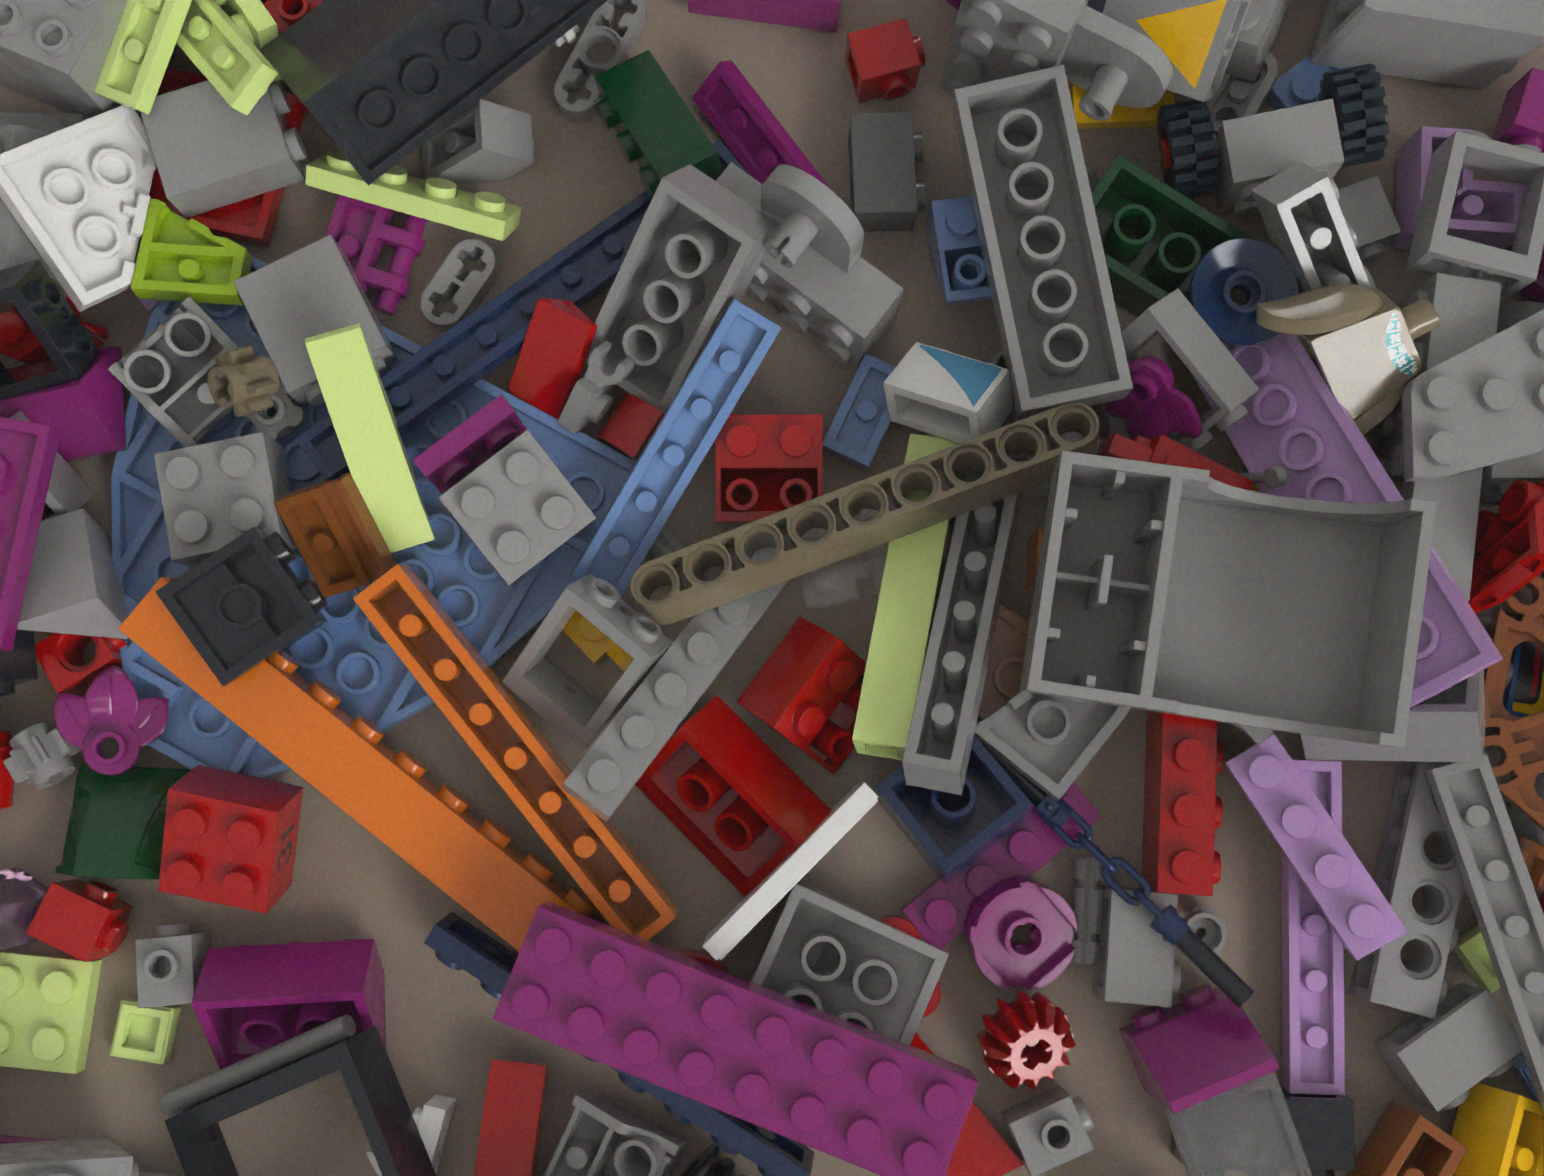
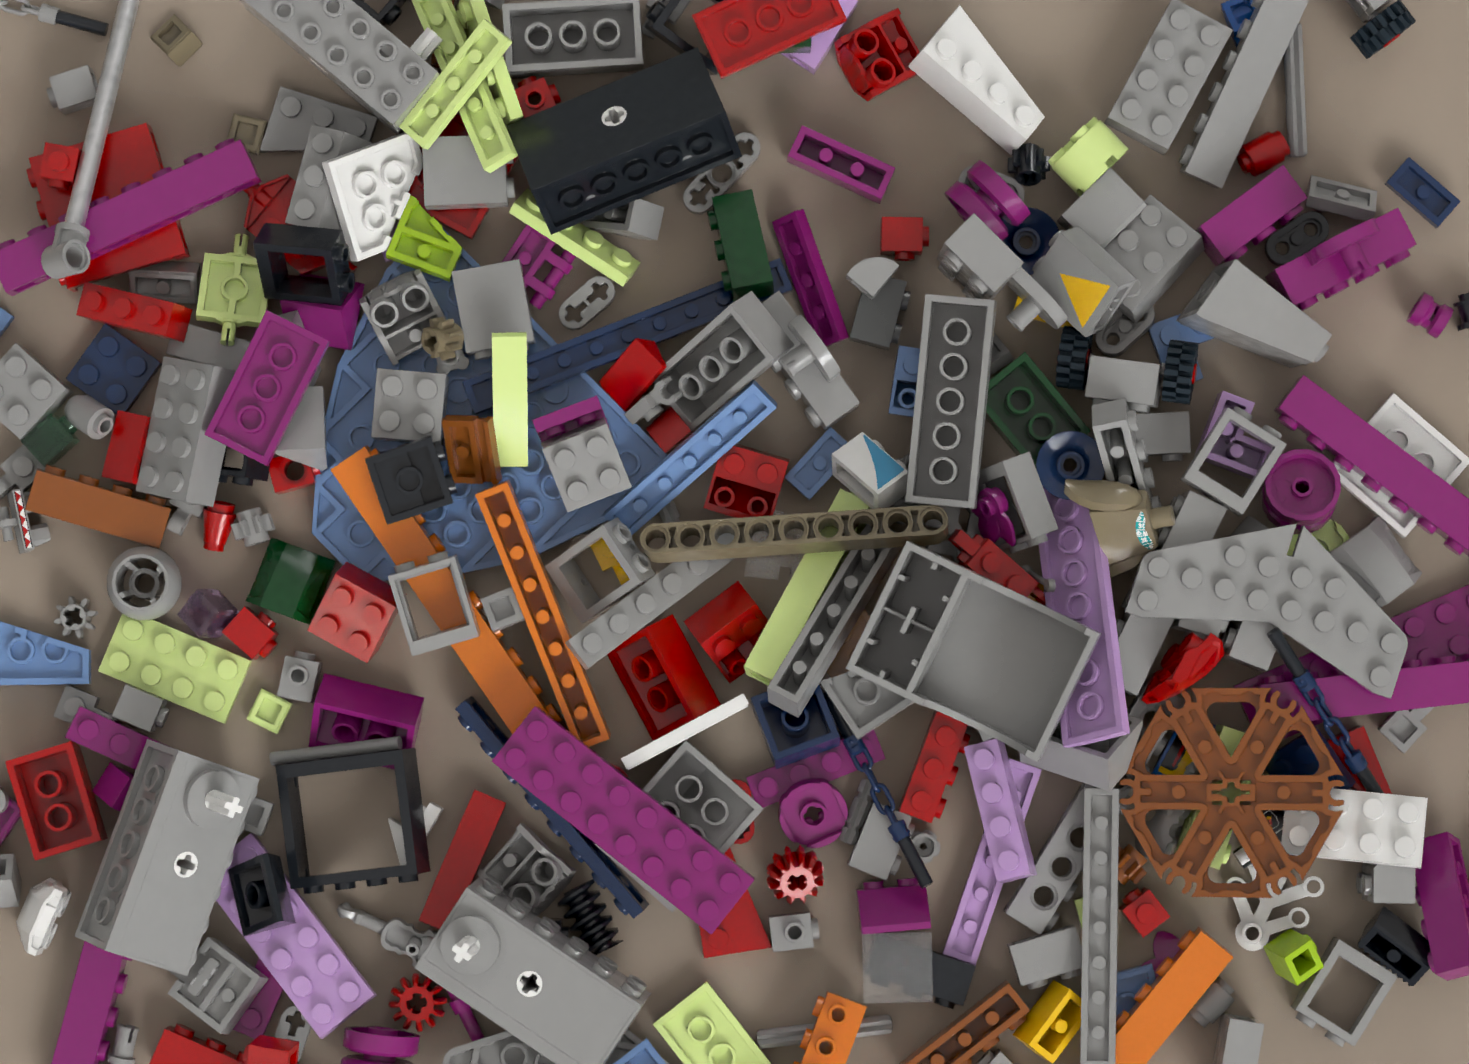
camera: 20 degrees right, 5 degrees up
(111, 711) = (301, 513): magenta plate -> none
(292, 815) = (445, 637): none -> light grey window
(450, 766) = (502, 609): none -> light grey tile
(860, 108) = (872, 274): none -> light grey brick

